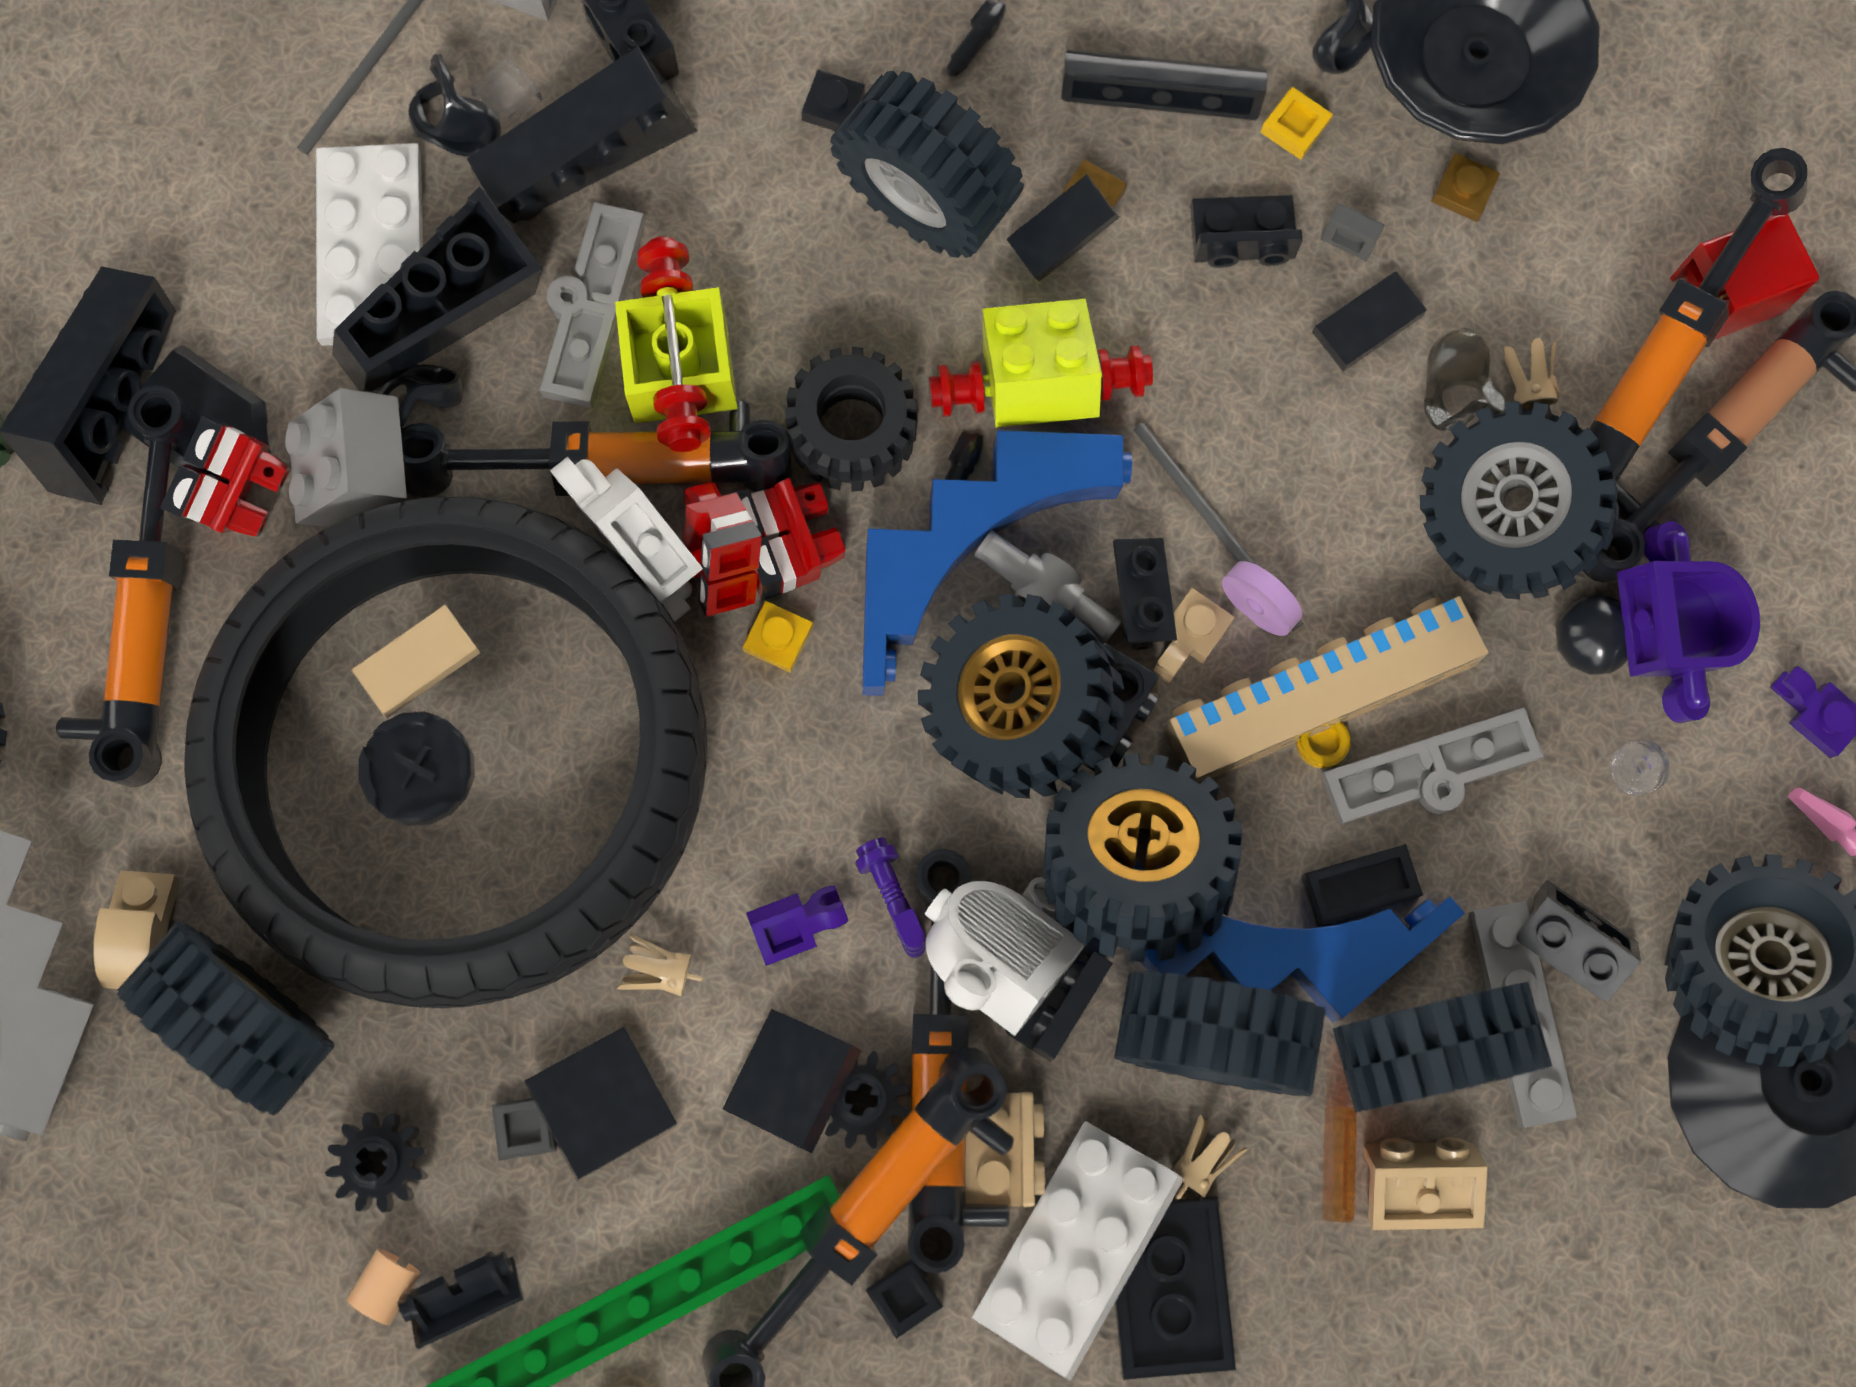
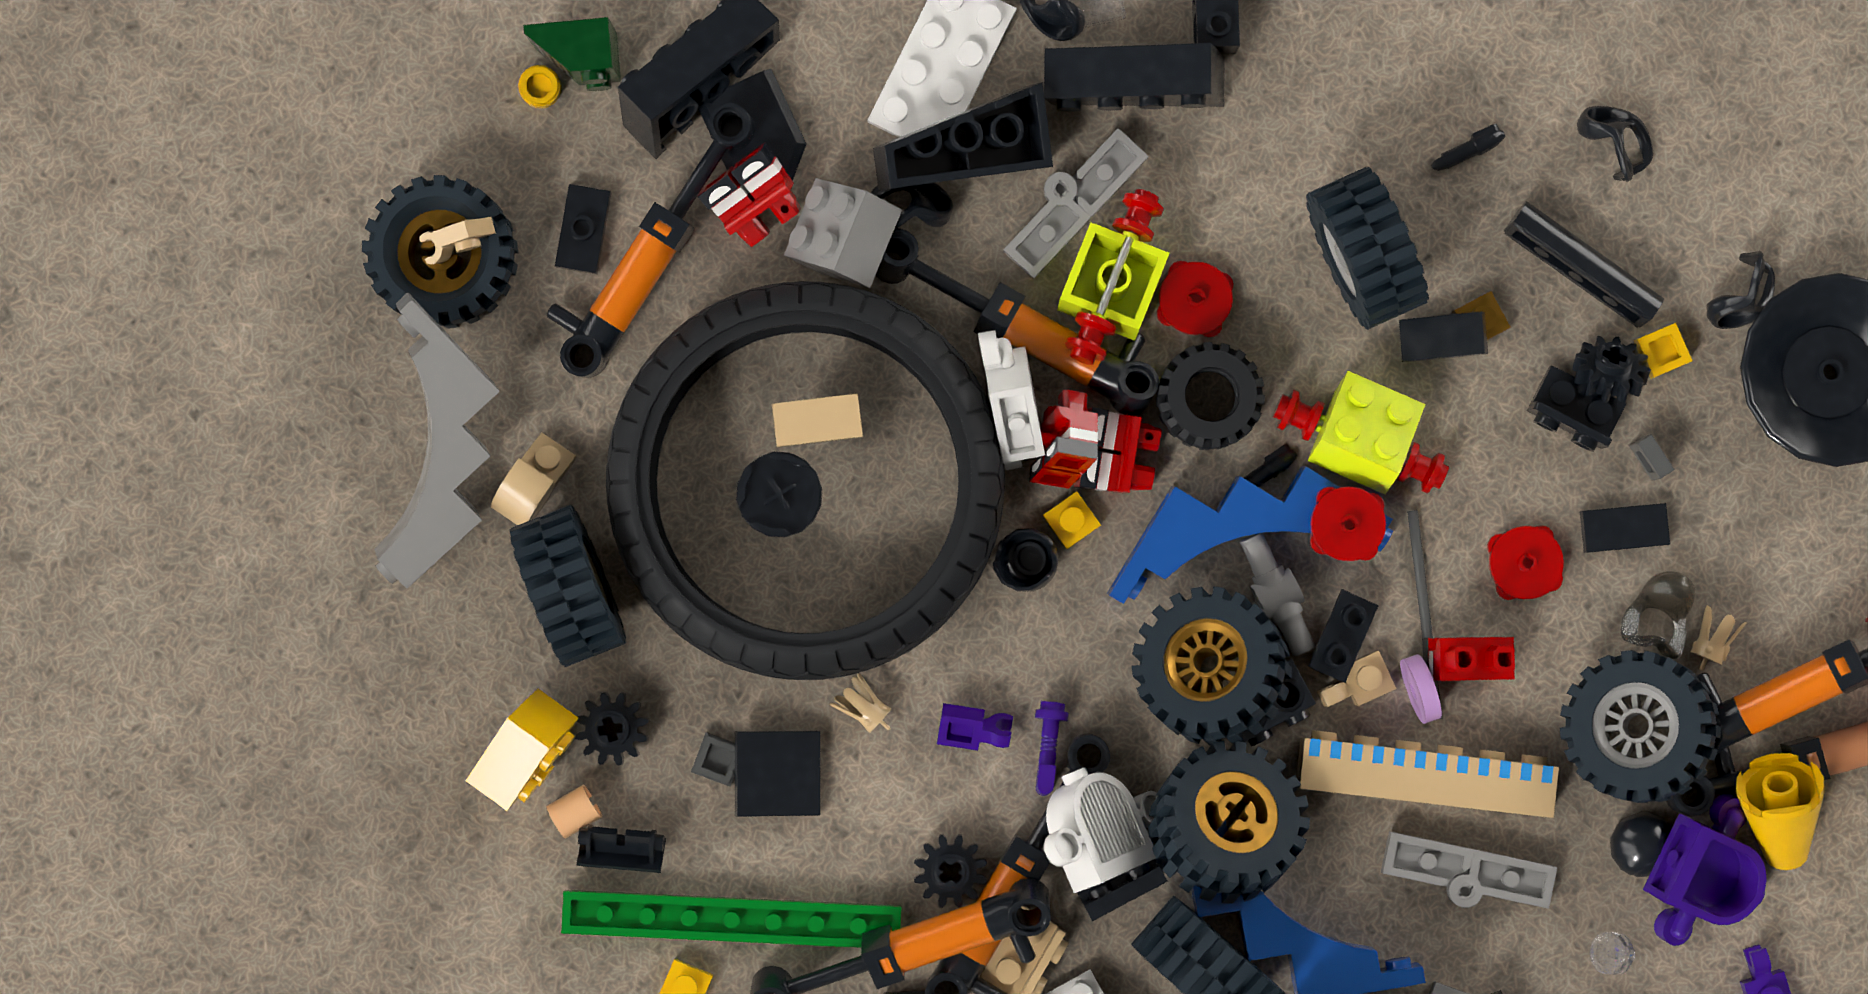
camera: 40 degrees right, 10 degrees up
(56, 623) = (583, 229): none -> black plate
(275, 1245) = (524, 750): none -> brick
(751, 703) = (1026, 560): none -> black hair
(777, 334) = (1195, 298): none -> red piece
(792, 1080) = (911, 832): black tile -> none
(831, 100) = (1334, 142): black plate -> none
(1077, 463) = (1347, 523): none -> red piece
(1256, 165) = (1611, 369): none -> black gear
(1289, 412) = (1525, 562): none -> red piece
(1297, 533) = (1470, 658): none -> red hips
(1326, 747) = (1405, 814): yellow tile -> none
(1362, 885) = (1371, 921): black tile -> none
(1466, 187) = (1758, 467): pearl gold plate -> none
(1721, 501) = (1782, 806): none -> yellow cone

